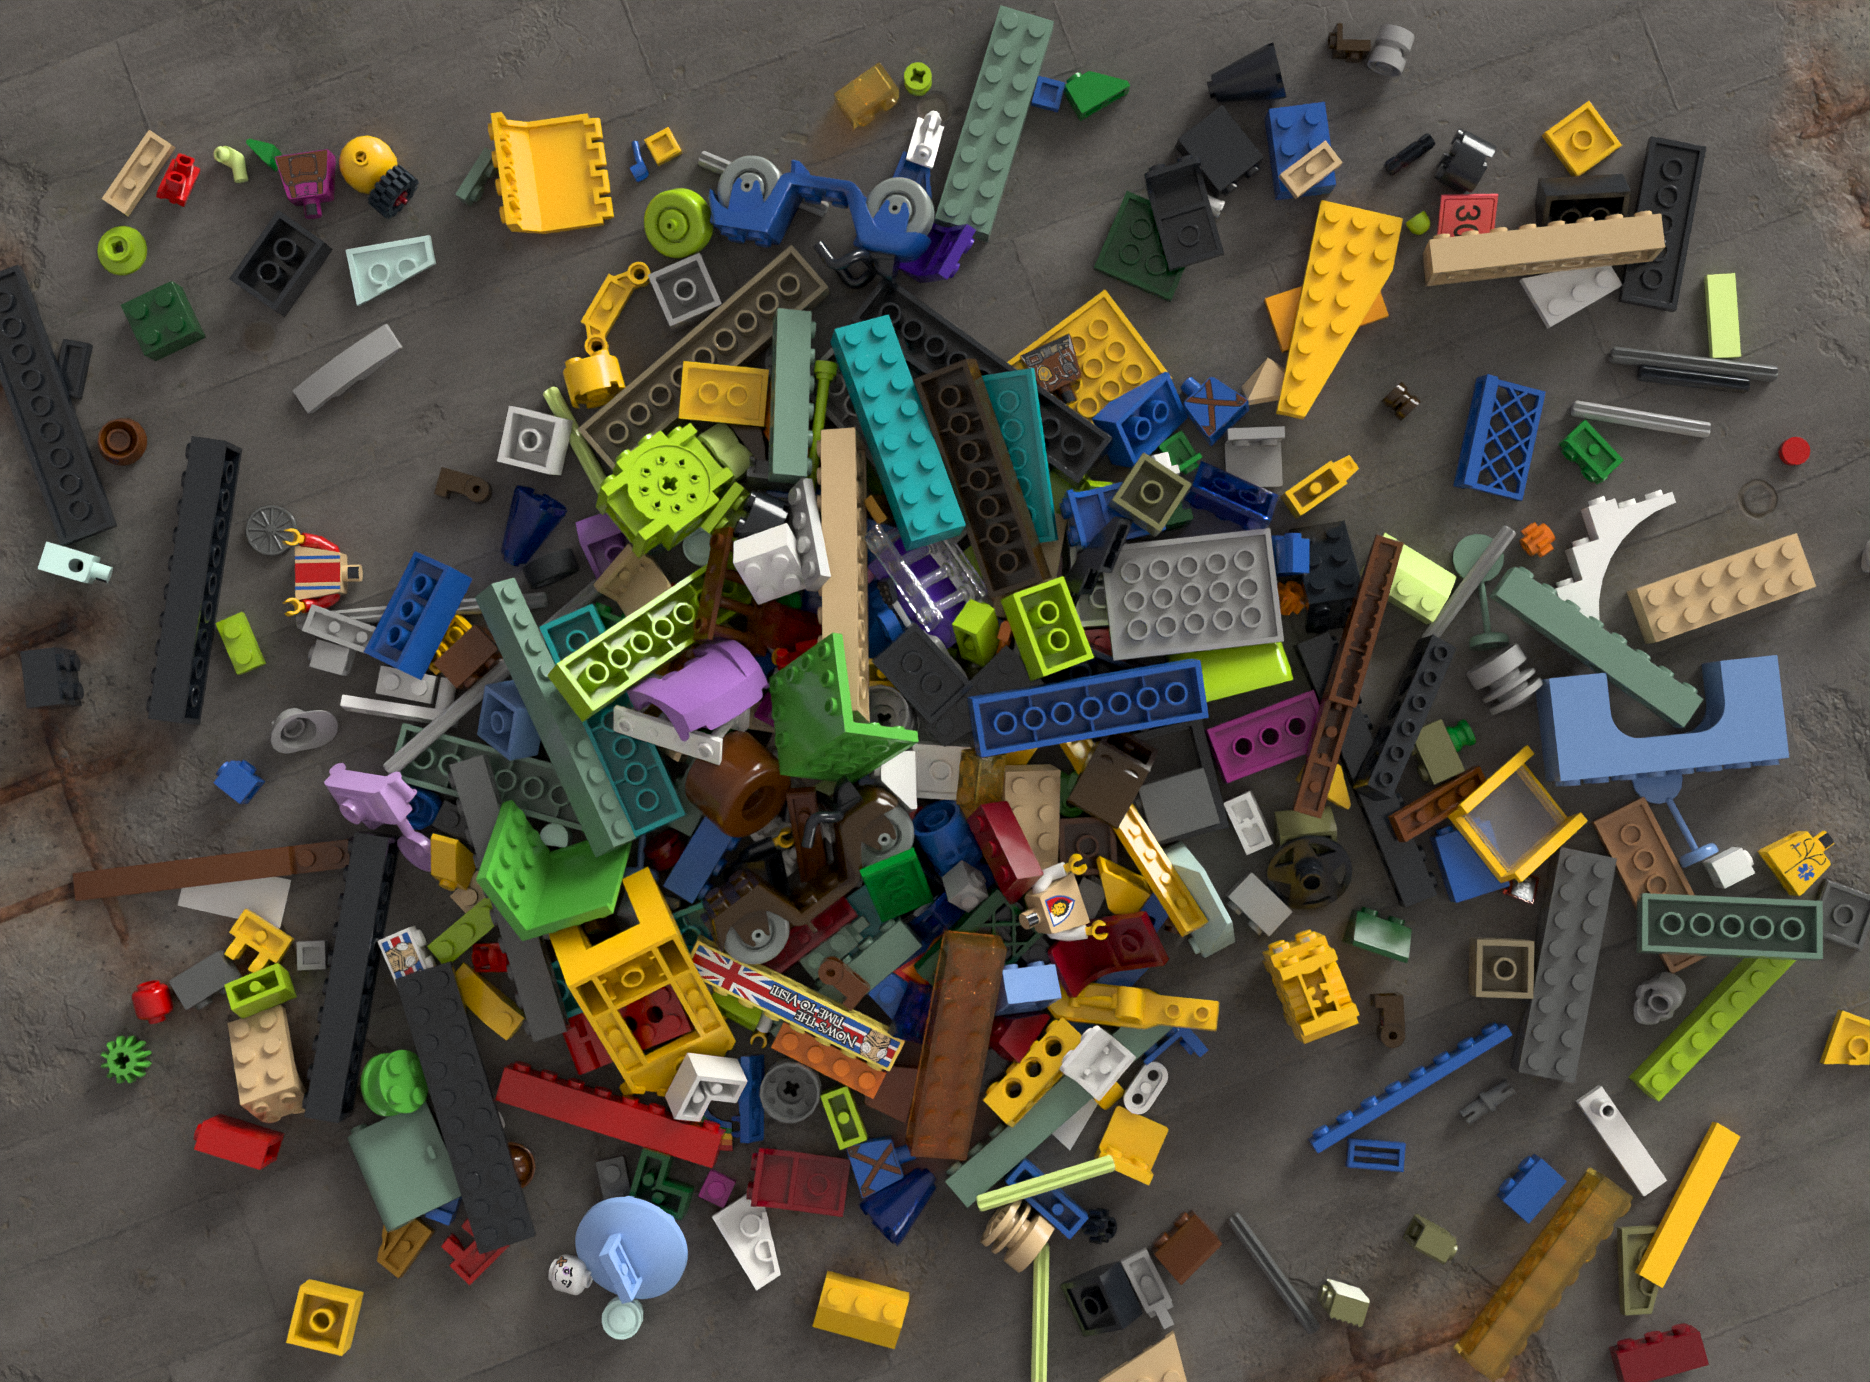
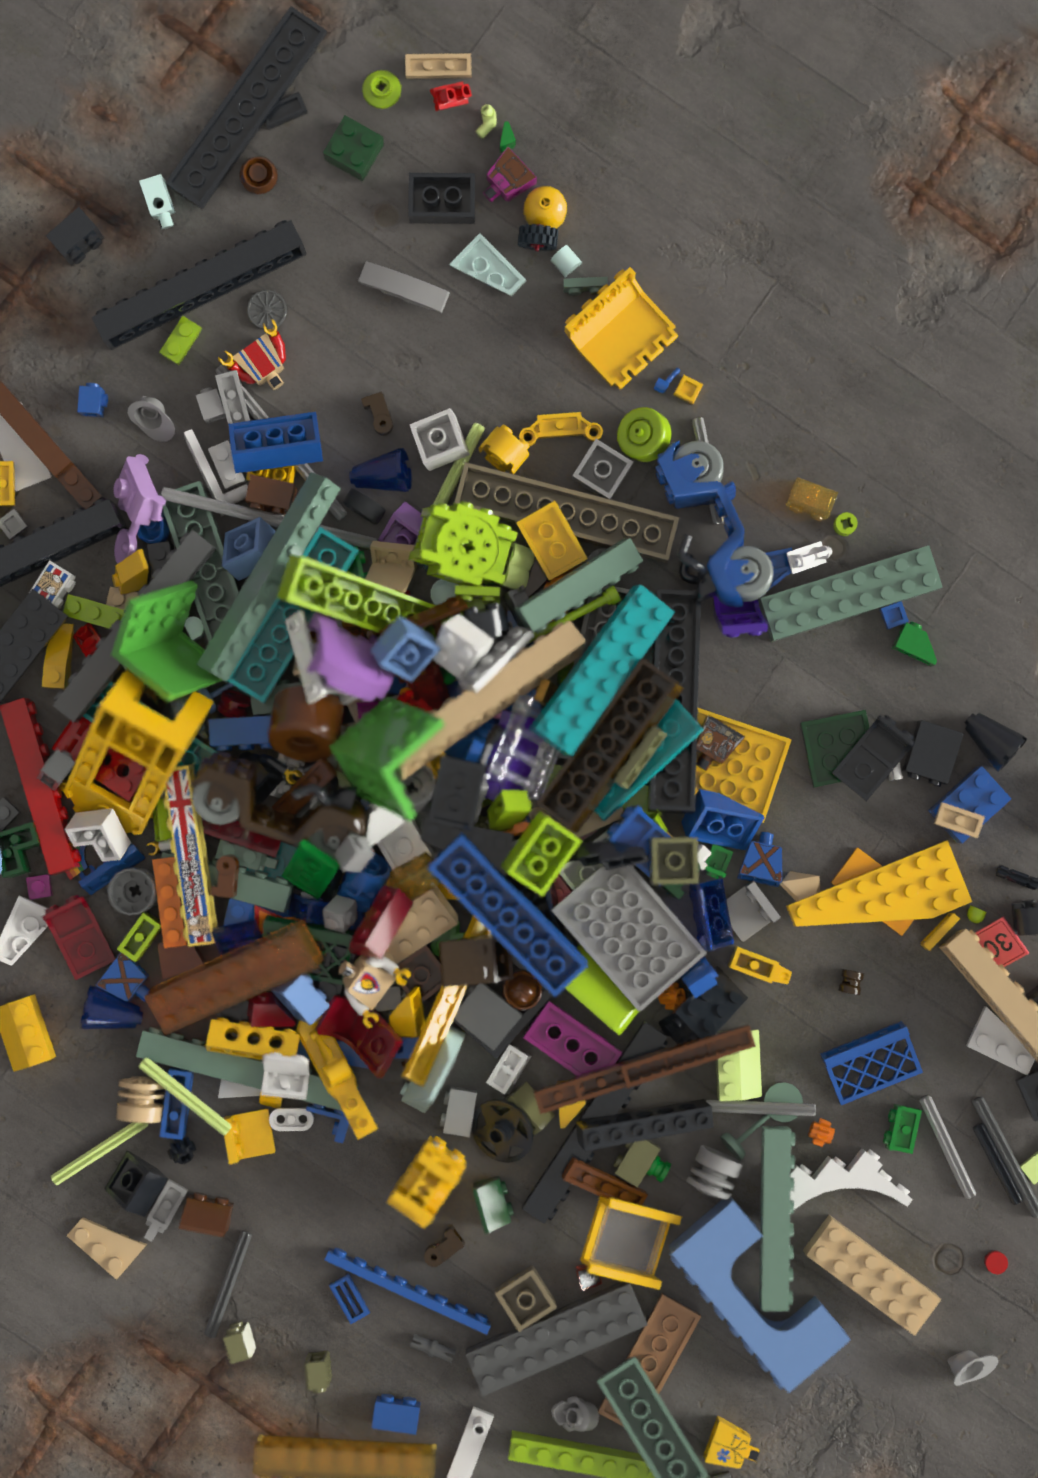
camera: 50 degrees right, 0 degrees up
(438, 181) = (565, 260): none -> light aqua brick
(604, 1083) = (56, 769): none -> dark grey brick
(732, 622) = (405, 649): none -> medium blue brick
(912, 826) = (354, 853): none -> light grey brick
(1016, 454) = (640, 757): none -> olive plate
(1177, 748) = (523, 990): none -> reddish brown hat
(1411, 273) = (939, 931): none -> yellow tile
(1461, 867) = (573, 1228): blue brick -> none
(1663, 790) = (714, 1327): medium blue piece -> none
(1729, 867) = (693, 1403): white brick -> none

